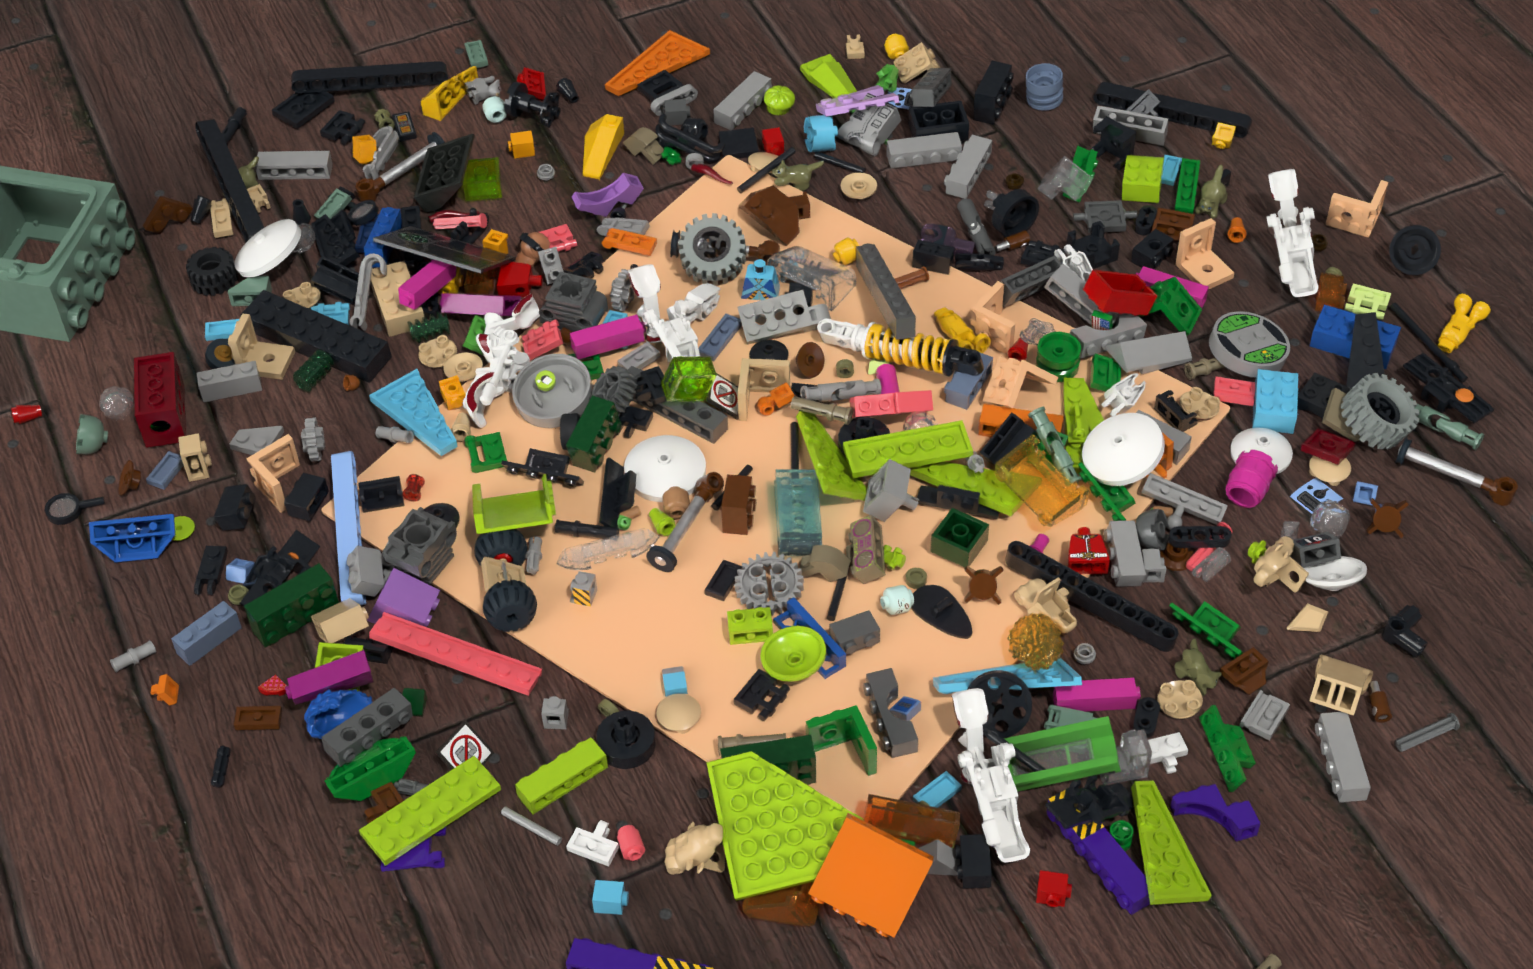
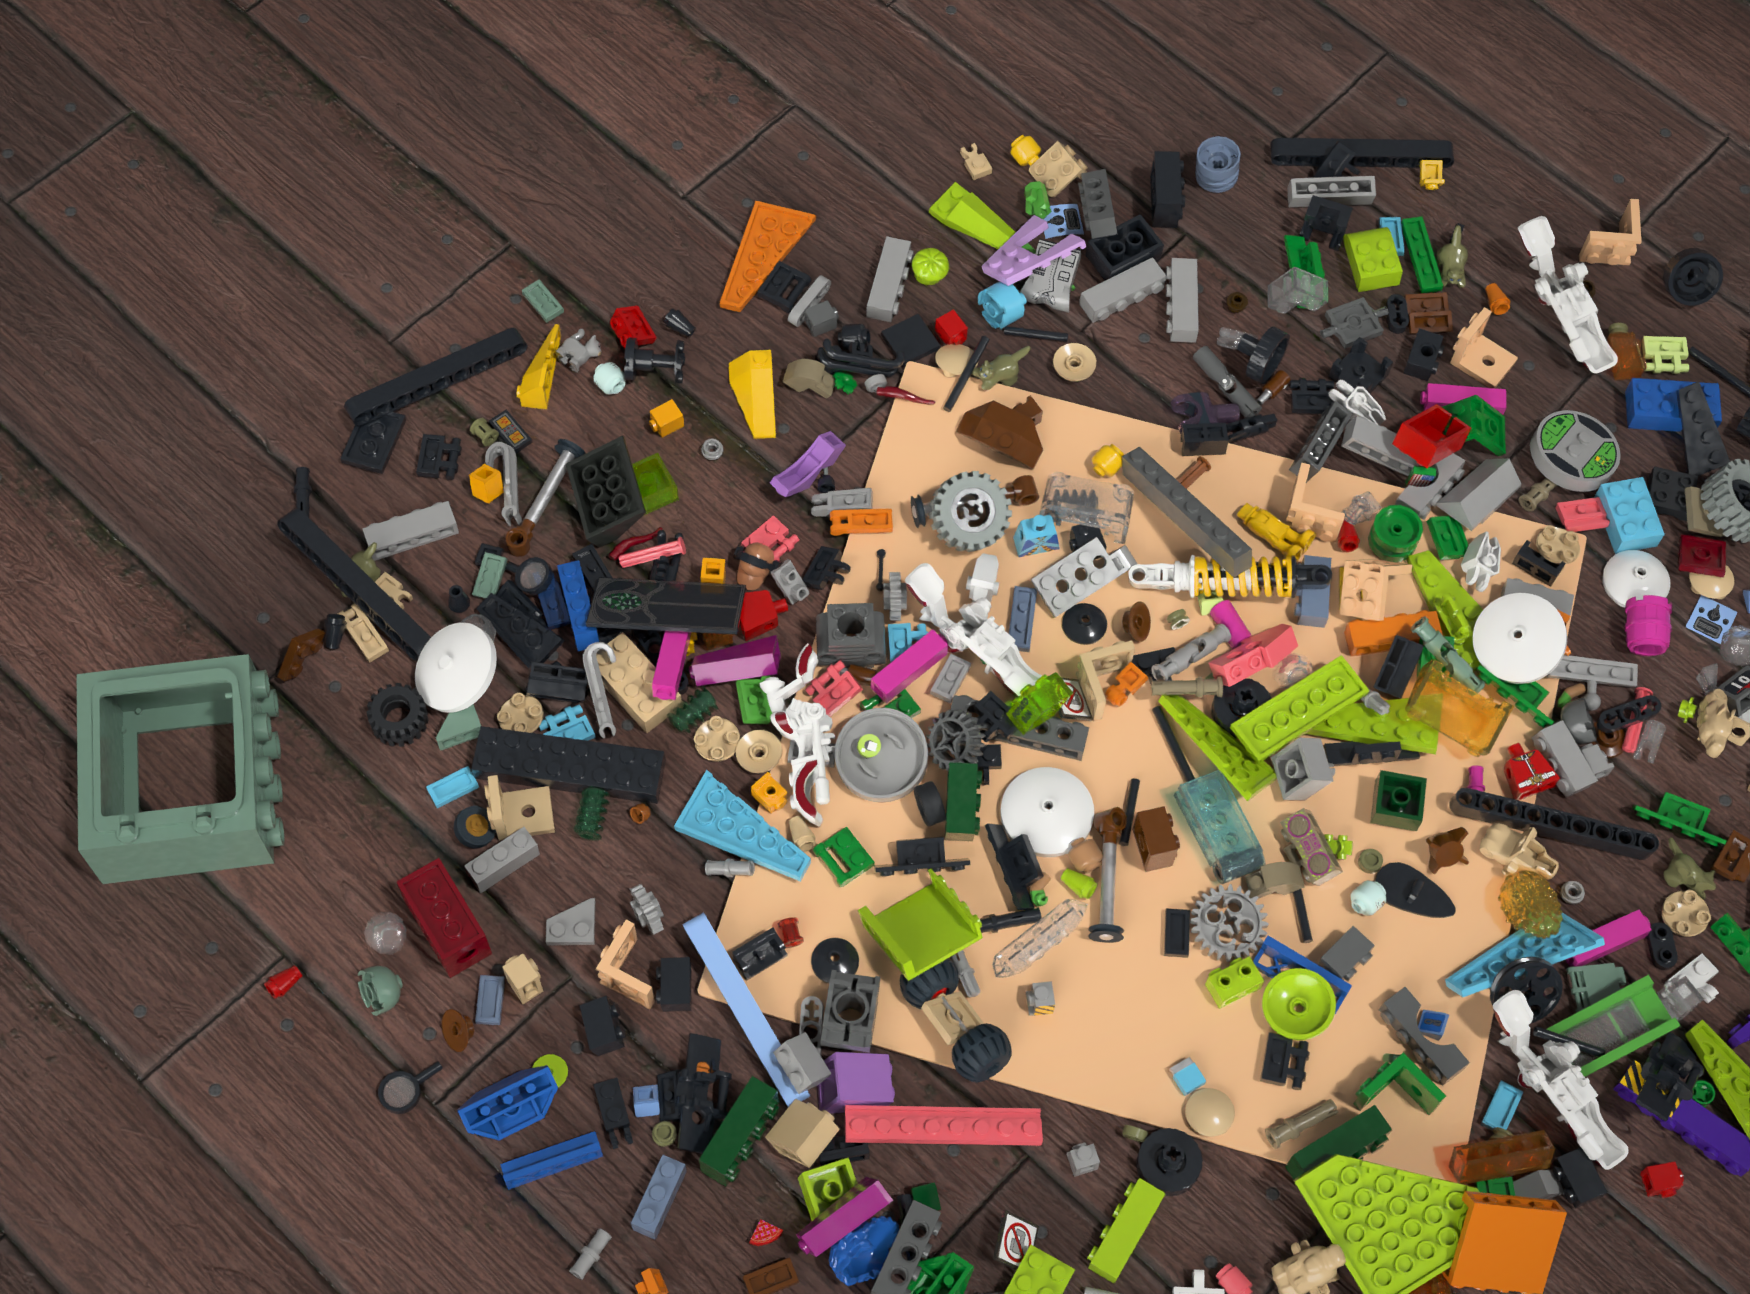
camera: 25 degrees left, 15 degrees up
(143, 586) = (551, 1160): none -> blue fence

